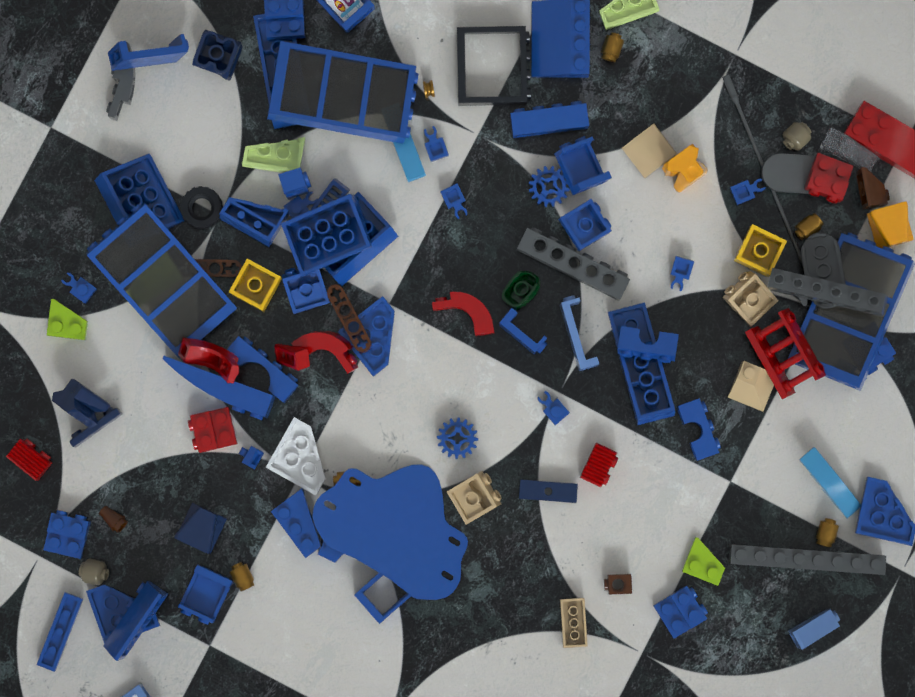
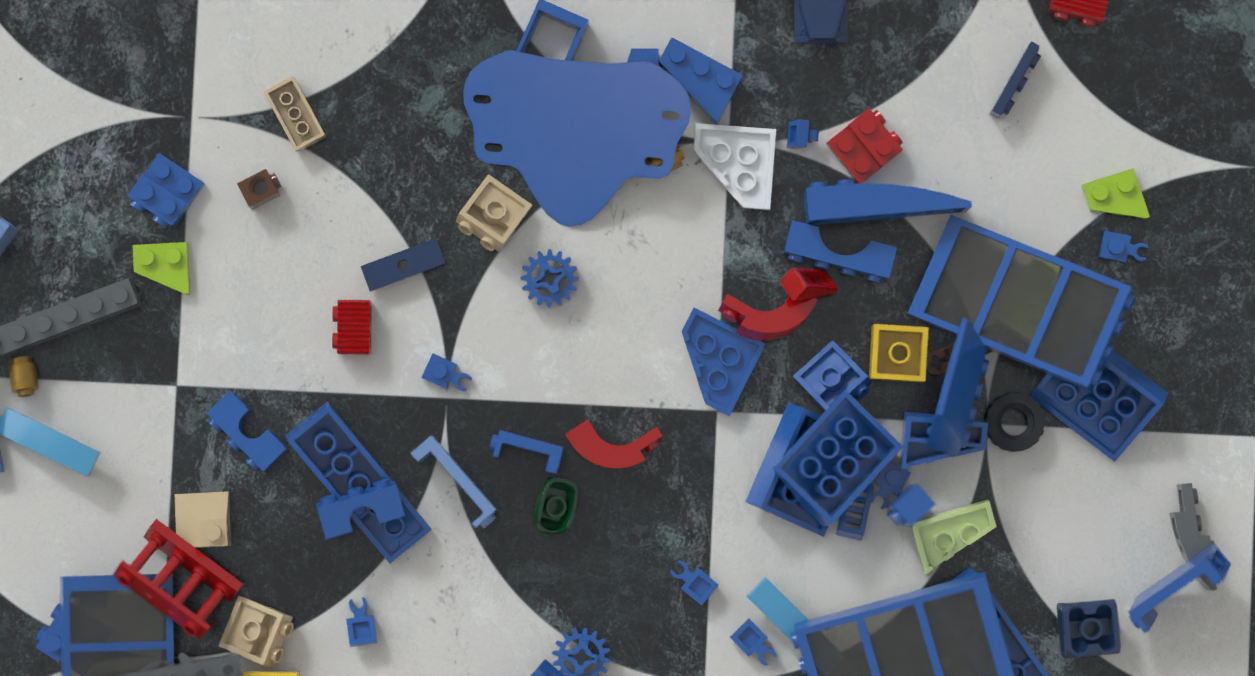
camera: 150 degrees right, 0 degrees up
(80, 402) = (1048, 99): dark blue piece -> none
(210, 355) = (911, 235): red arch -> none
(228, 241) = (959, 391): none -> blue slope
(351, 317) = (755, 370): reddish brown beam -> none
(562, 265) = (434, 562): dark grey brick -> none
(585, 224) = (511, 628): blue plate -> none

